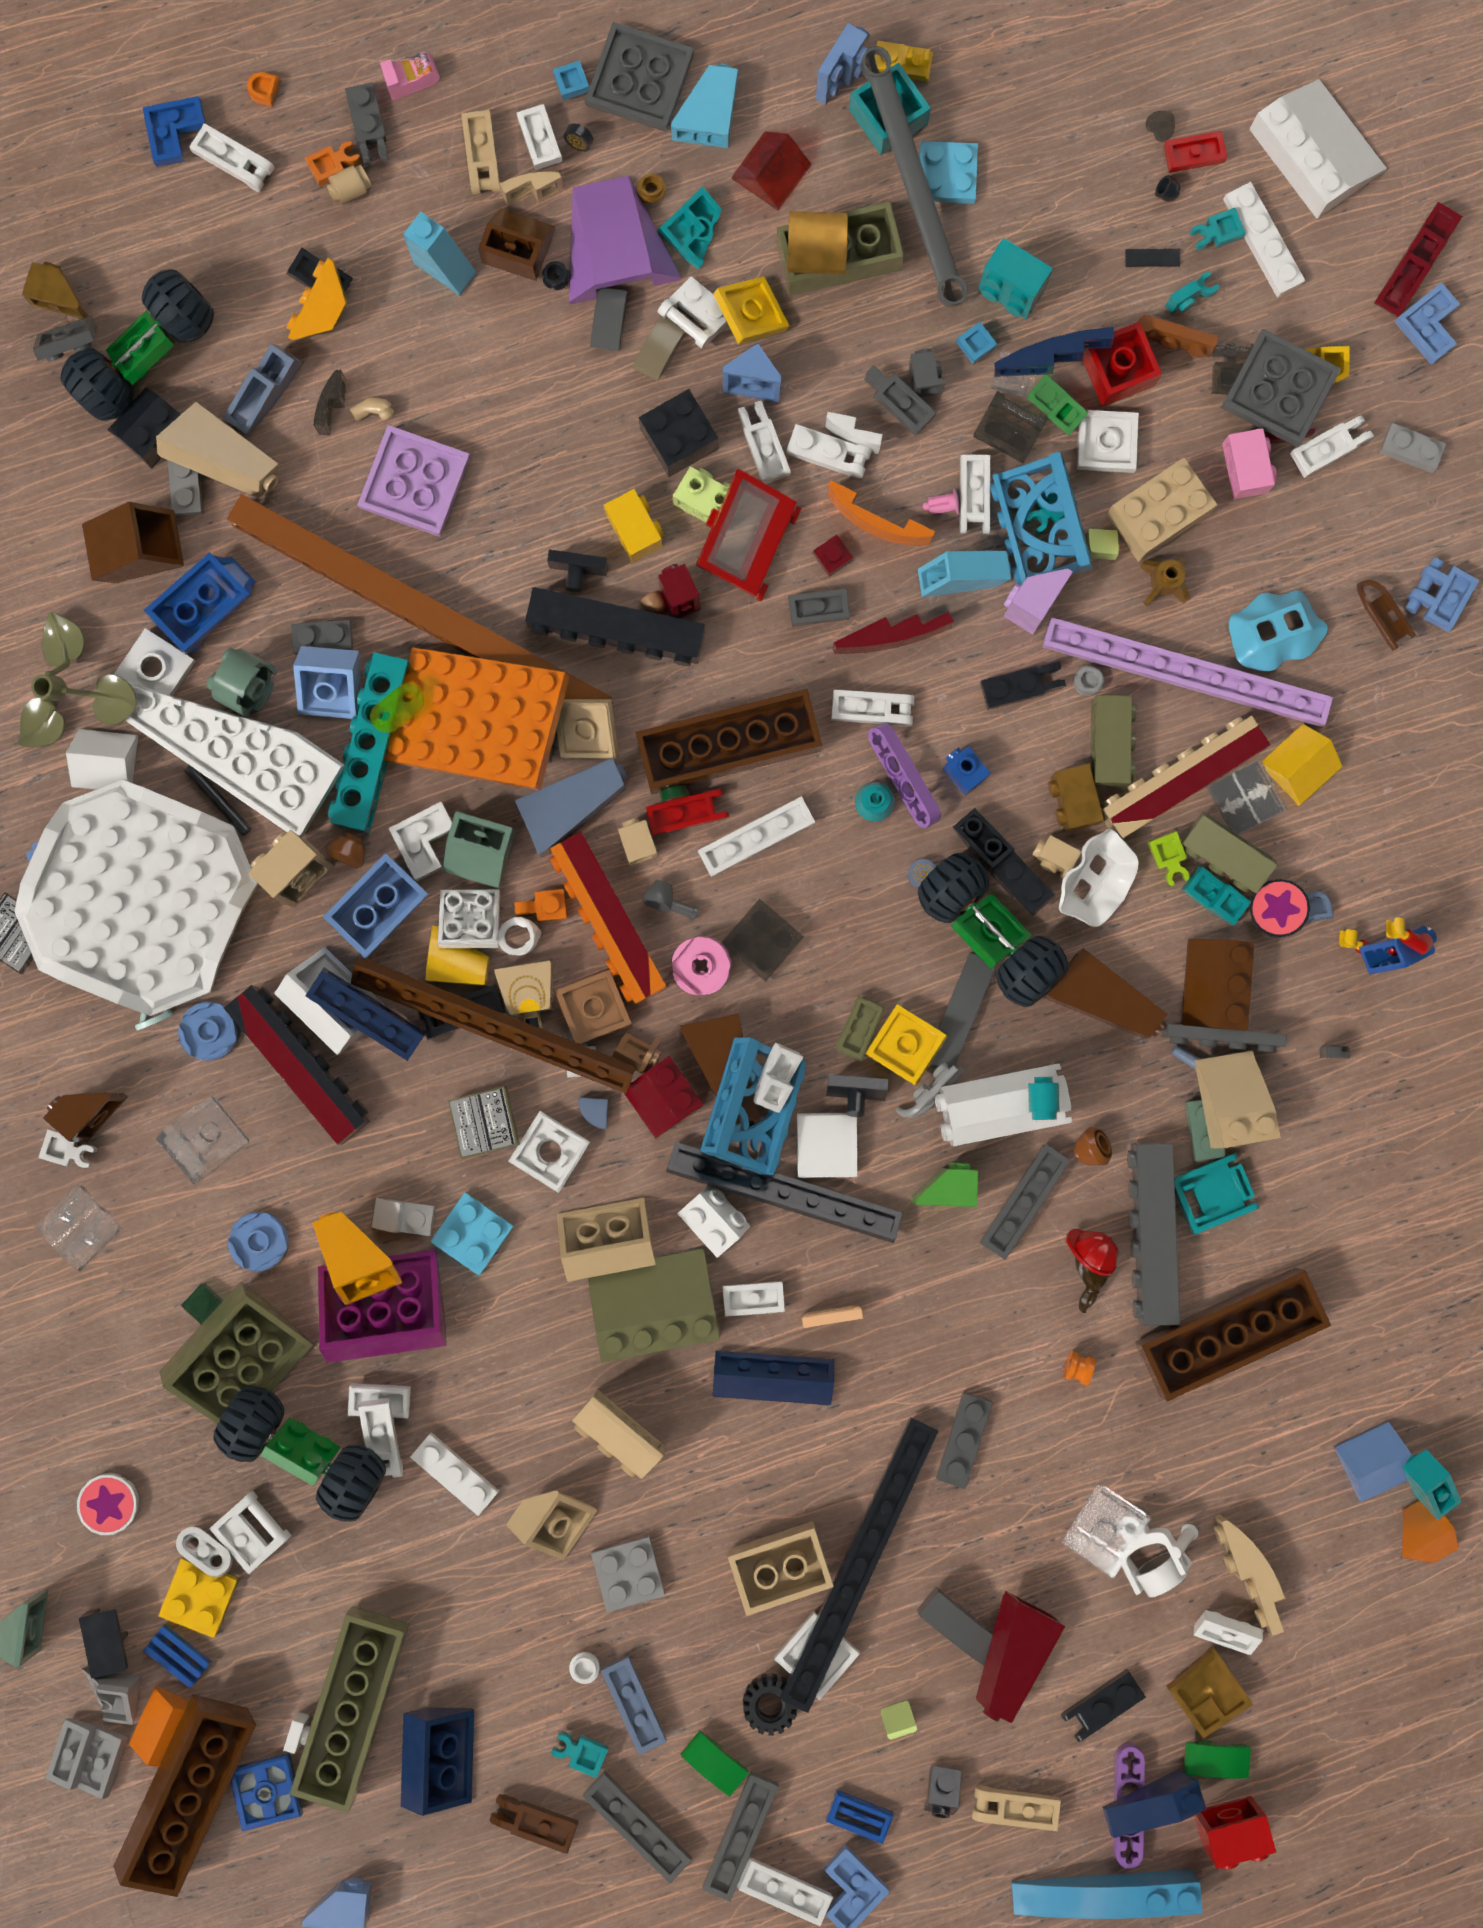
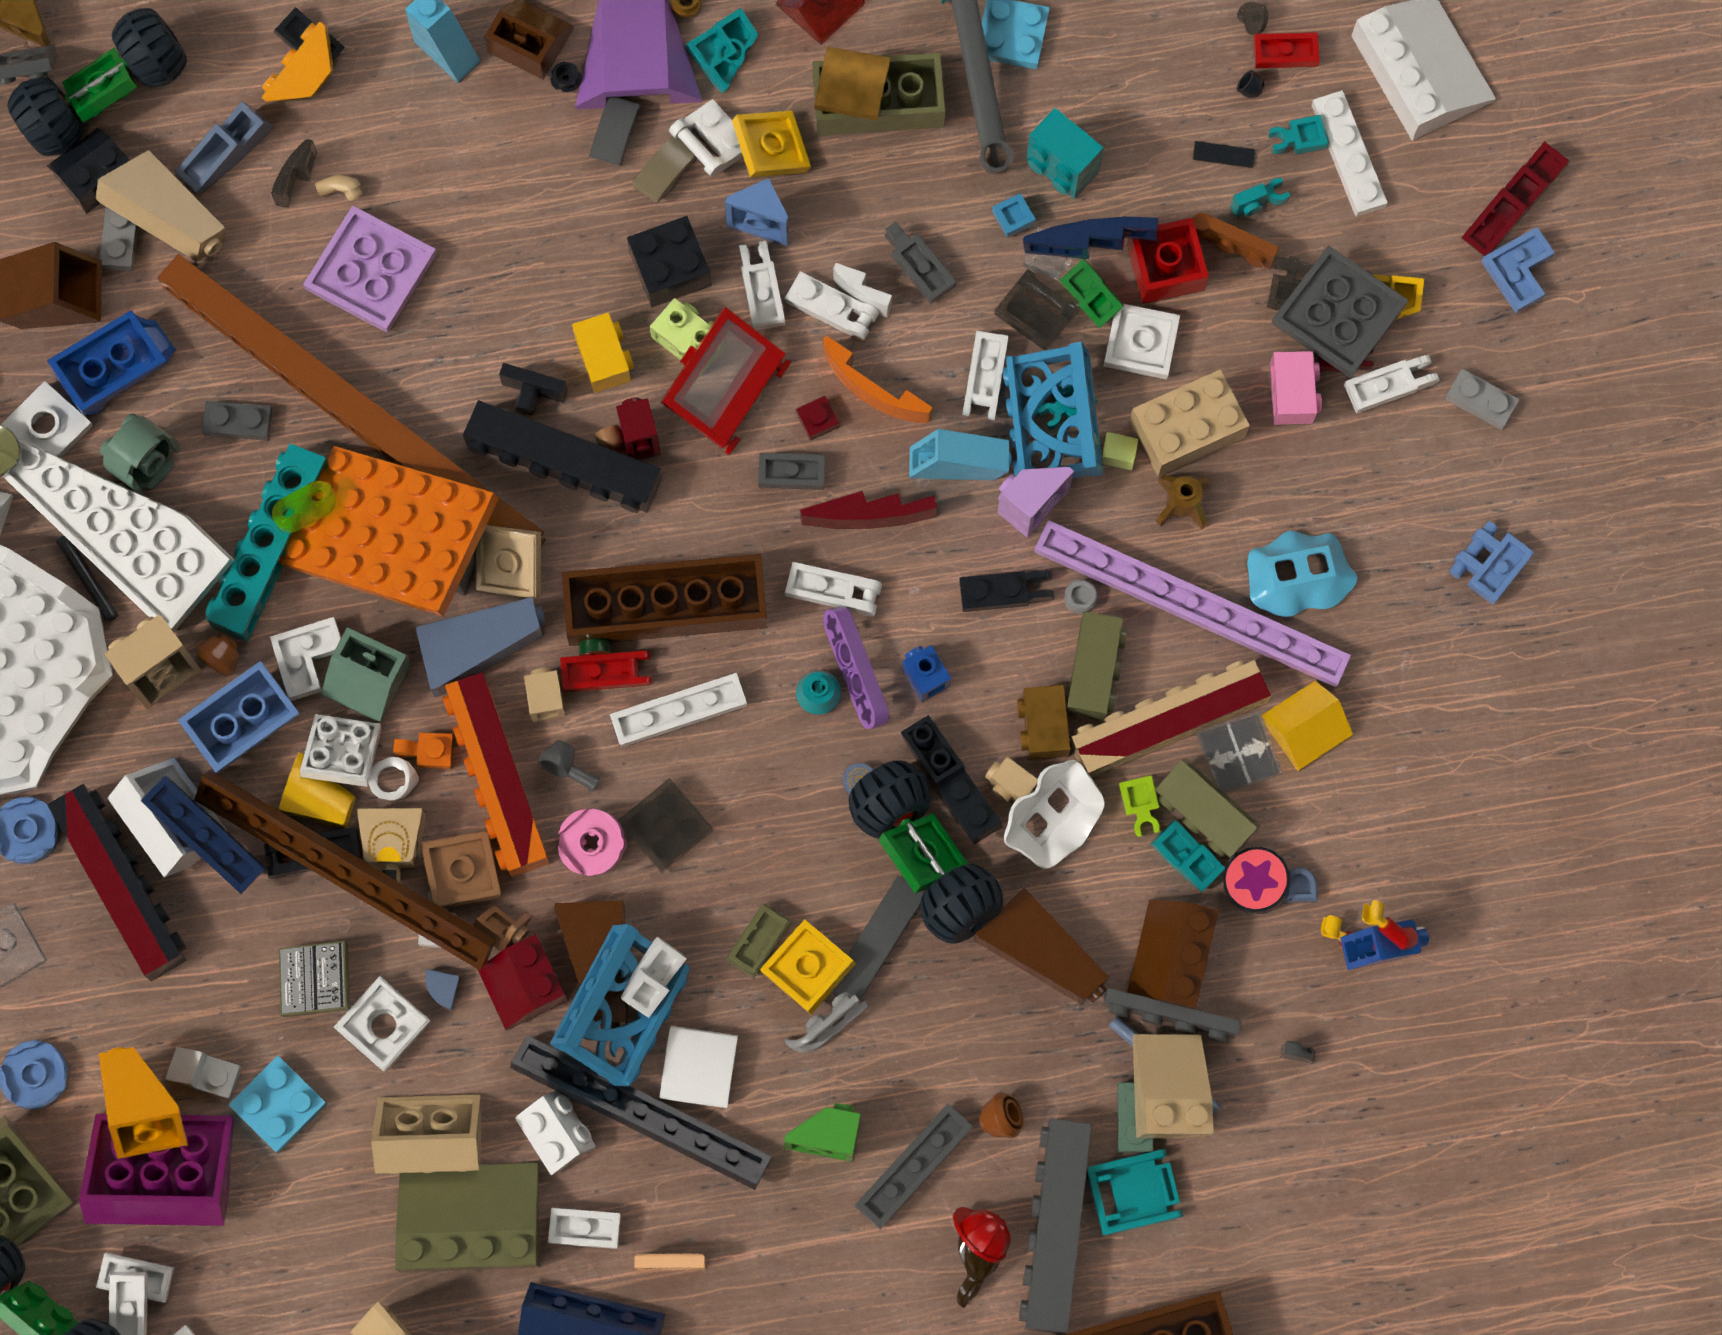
camera: 10 degrees right, 10 degrees down
(327, 682) = (233, 468): light blue slope -> none
(856, 1090) = (742, 1010): black tile -> none
(926, 373) = (952, 239): dark grey brick -> none
(942, 503) = (948, 380): bright pink piece -> none
(996, 1106) = (904, 1049): white brick -> none
(1043, 1098) = (945, 1041): teal brick -> none
(1379, 610) = (1420, 567): reddish brown piece -> none

